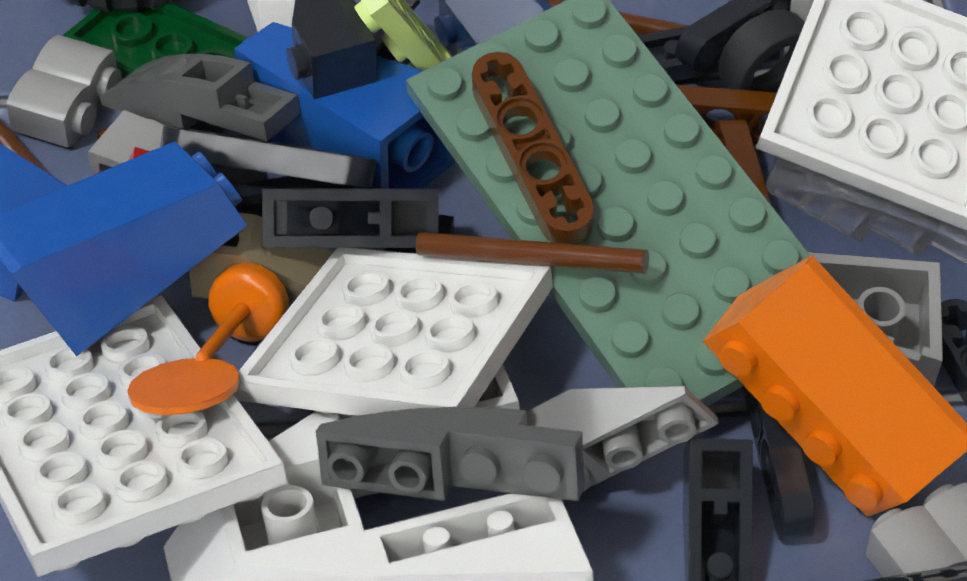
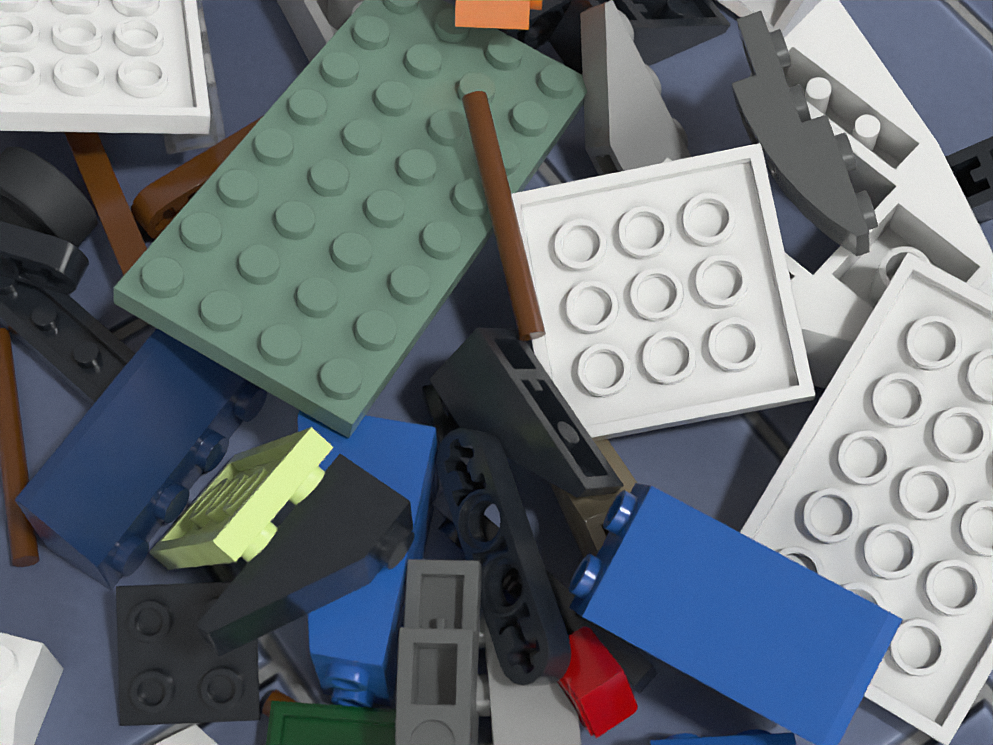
camera: 120 degrees left, 15 degrees up
(245, 305) = (850, 423): orange piece -> none
(534, 146) = (382, 243): reddish brown beam -> none

